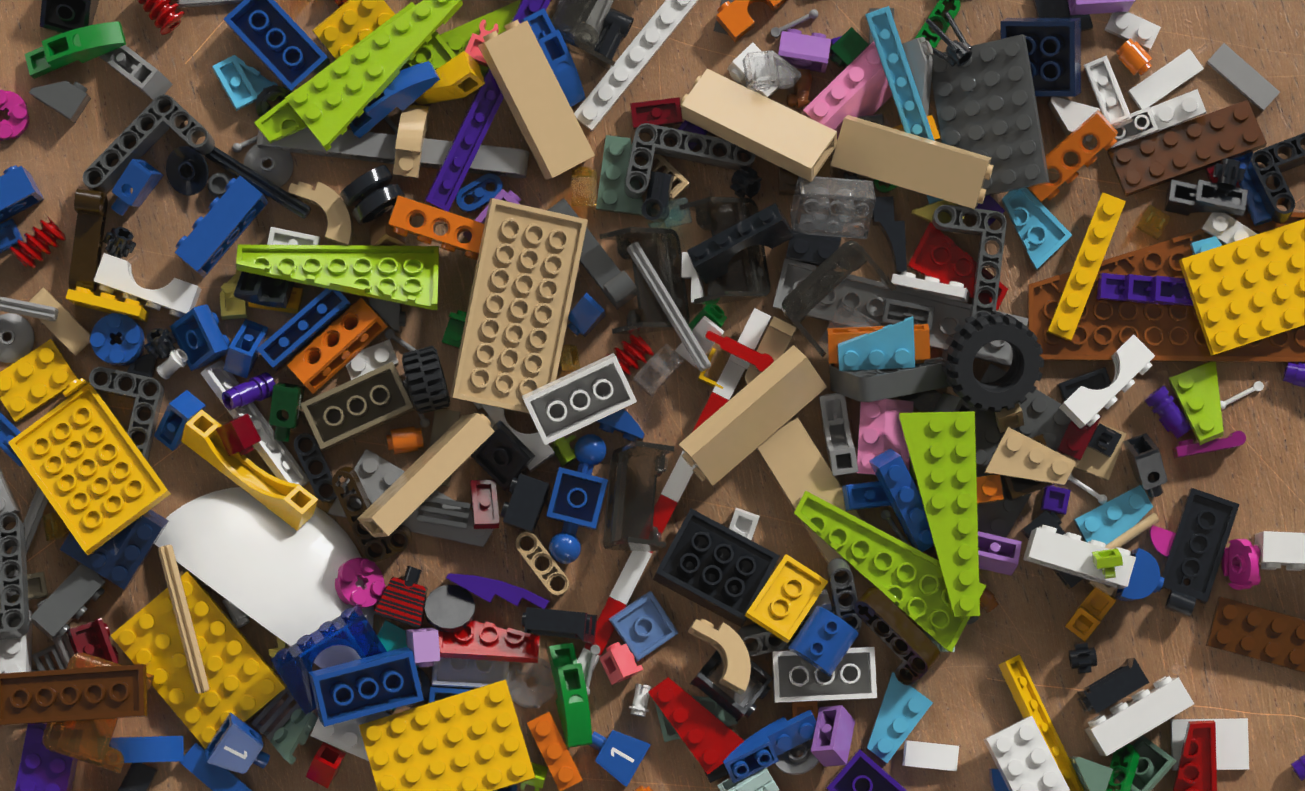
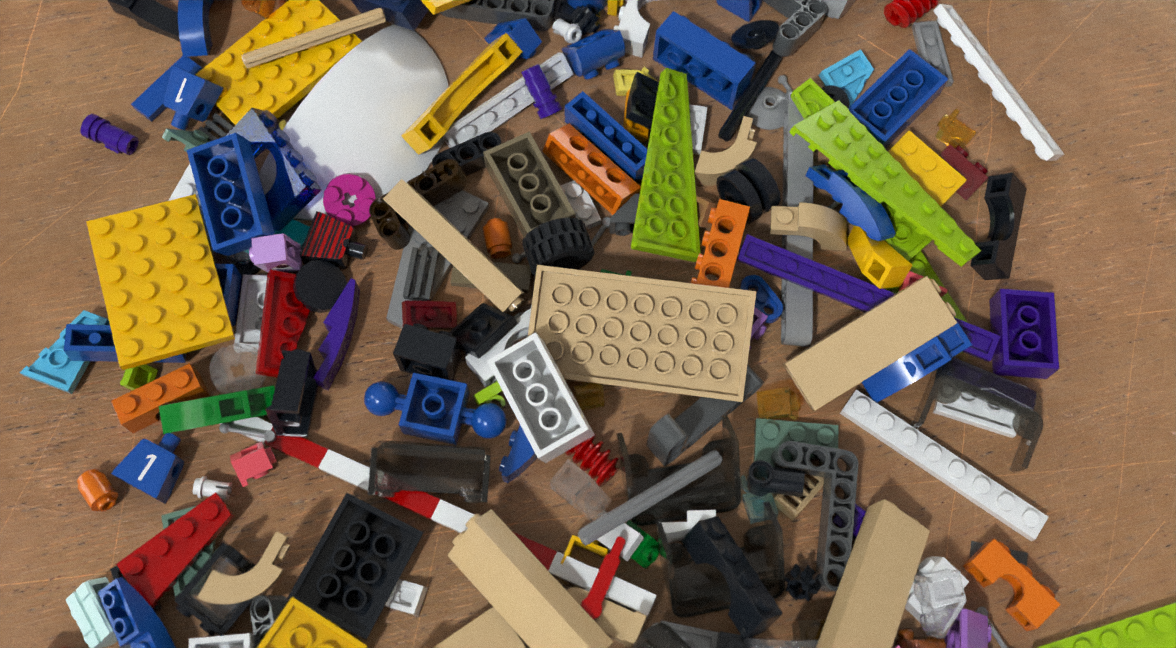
camera: 85 degrees right, 15 degrees down
(239, 435) = (496, 81): dark red brick -> none
(243, 349) = (581, 79): blue slope -> none
(286, 398) = (526, 118): dark green torso -> none
(325, 765) = (164, 175): red brick -> none
(531, 557) = (351, 379): tan beam -> none
(585, 316) = (637, 409): blue slope -> none
(614, 30) = (959, 429): black piece -> none
(643, 625) = (294, 488): medium blue tile -> none
(657, 112) = (871, 478): dark red plate -> none

